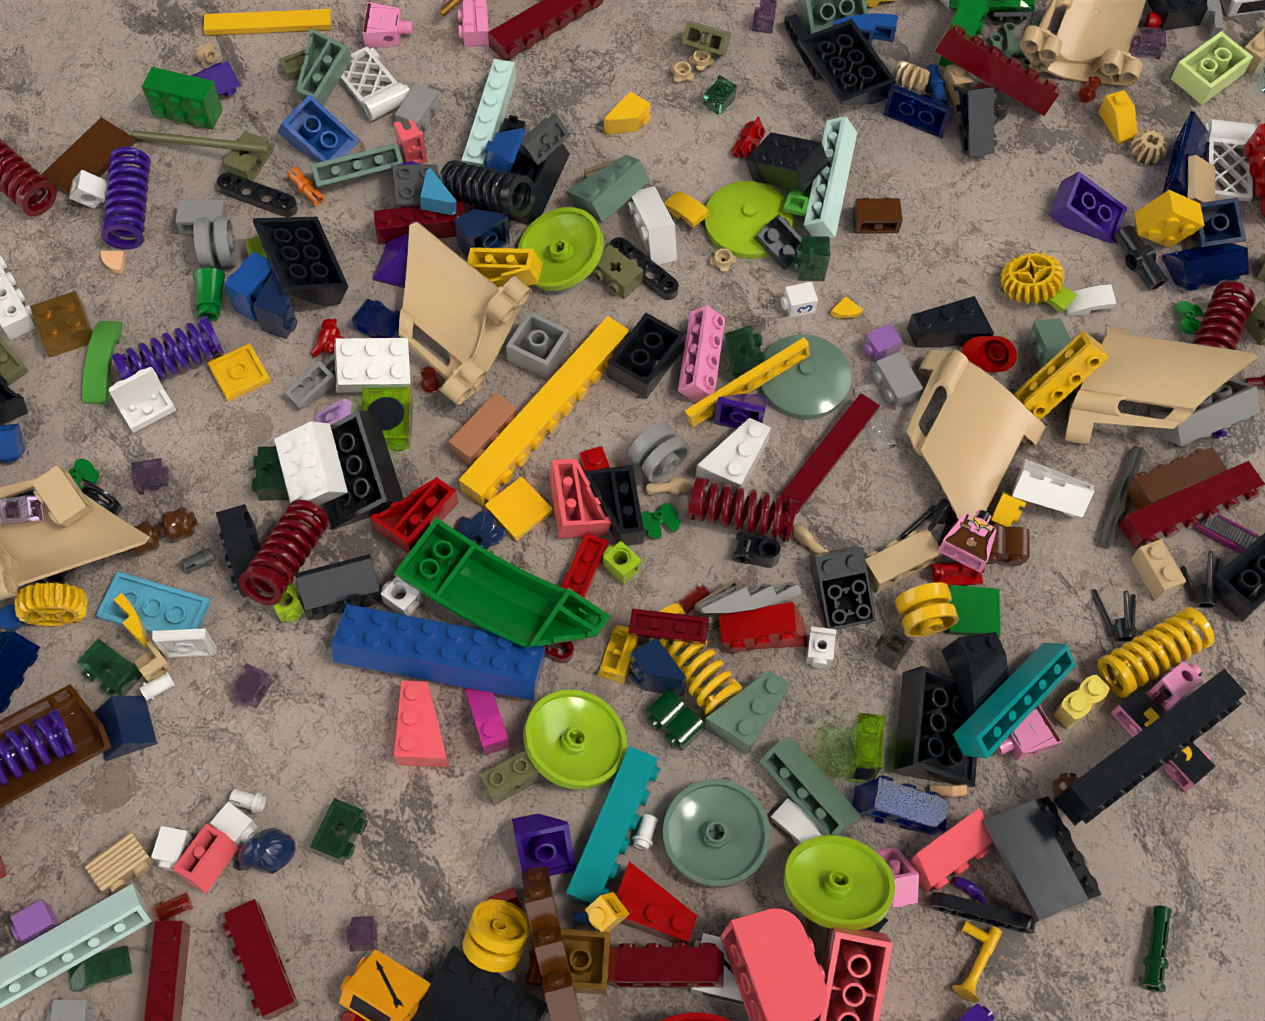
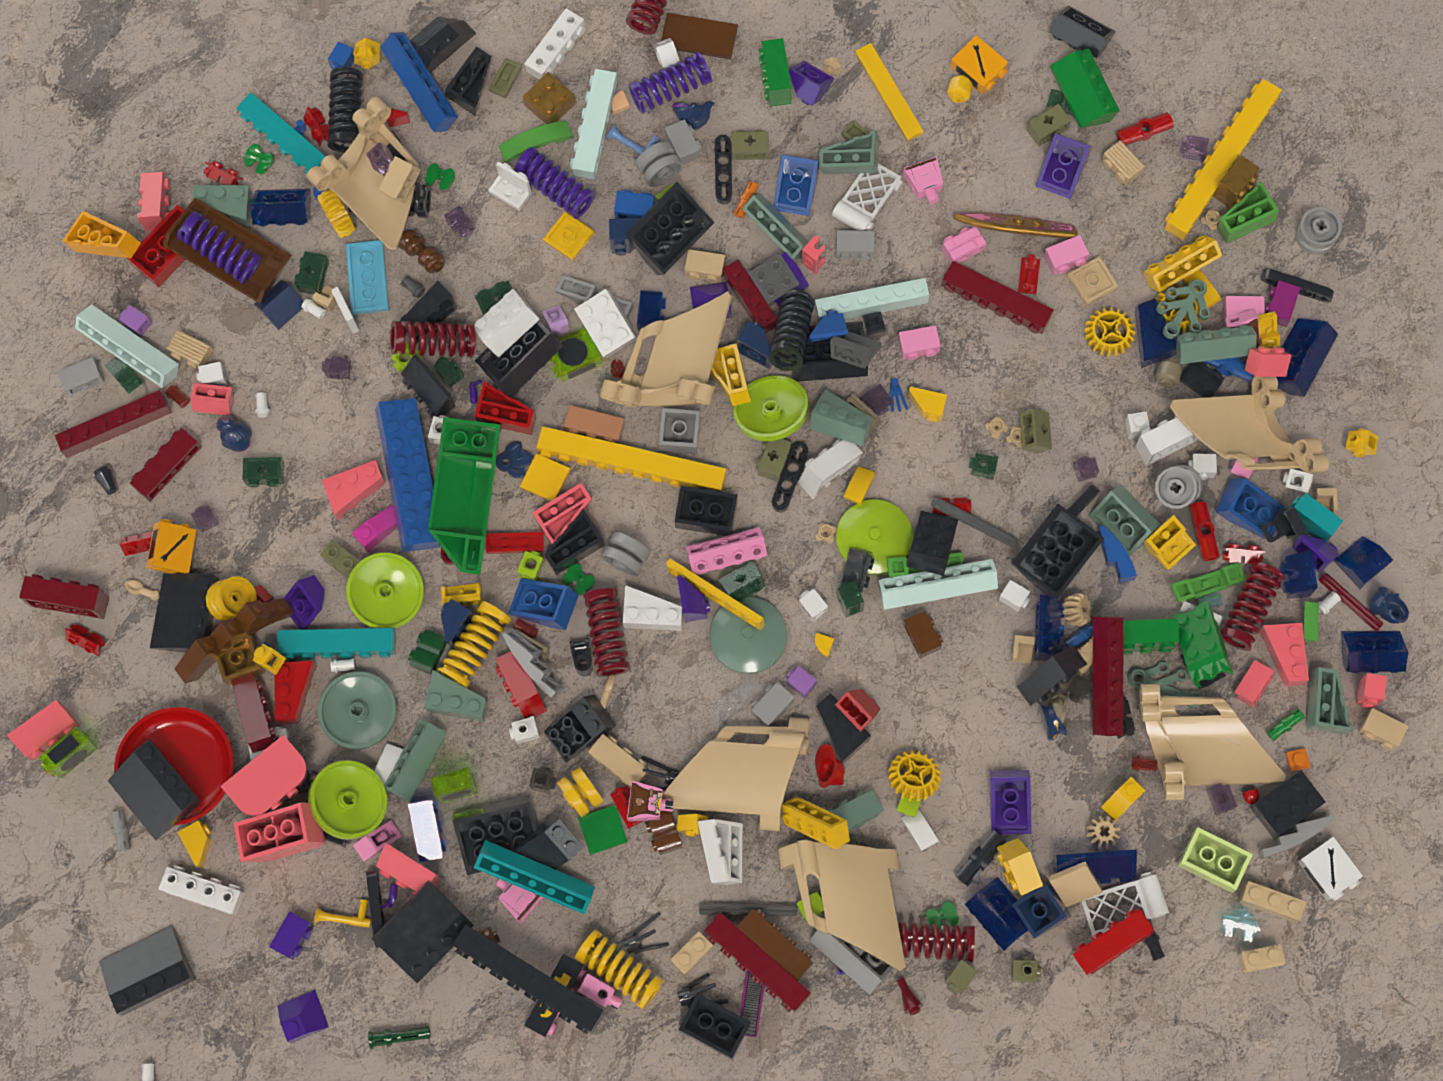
camera: 75 degrees right, 10 degrees up
(122, 291) = (594, 124): none -> light aqua brick
(133, 623) = (345, 273): yellow slope -> none
(177, 189) = (694, 114): none -> dark blue hair
(188, 258) = (615, 134): none -> medium blue piece
(200, 141) = (744, 107): olive piece -> none
(208, 292) = (620, 180): green plant -> none
(234, 824) = (241, 405): white brick -> none
(327, 337) = (621, 283): red animal -> none
(328, 555) = (448, 371): none -> clear green brick
(359, 251) = (704, 266): none -> tan brick
(370, 544) = (473, 393): none -> dark purple piece
(436, 196) = (764, 295): dark azure slope -> none
(558, 96) = (919, 343): none -> bright pink brick
(593, 459) = (599, 514): red brick -> none
(599, 153) = (877, 400): none -> clear purple brick
(603, 142) = (895, 390): none -> blue piece
(668, 626) = (482, 615): dark red tile -> none
(672, 567) = (544, 603): none -> blue slope
(675, 486) = (611, 579): tan piece -> none
(777, 123) = (974, 522): none -> dark grey axle
(830, 450) = (686, 677): dark red tile -> none
(870, 123) = (1015, 596): none -> white brick
(926, 141) = (1023, 649): none -> tan panel
(941, 294) = (858, 707): none -> red torso
(949, 790) = (455, 857): light nougat tile -> none
(1018, 136) = (1055, 716): none -> piece
(1081, 701) = (554, 926): light yellow brick -> none
(1141, 436) = (816, 905): none -> lime brick

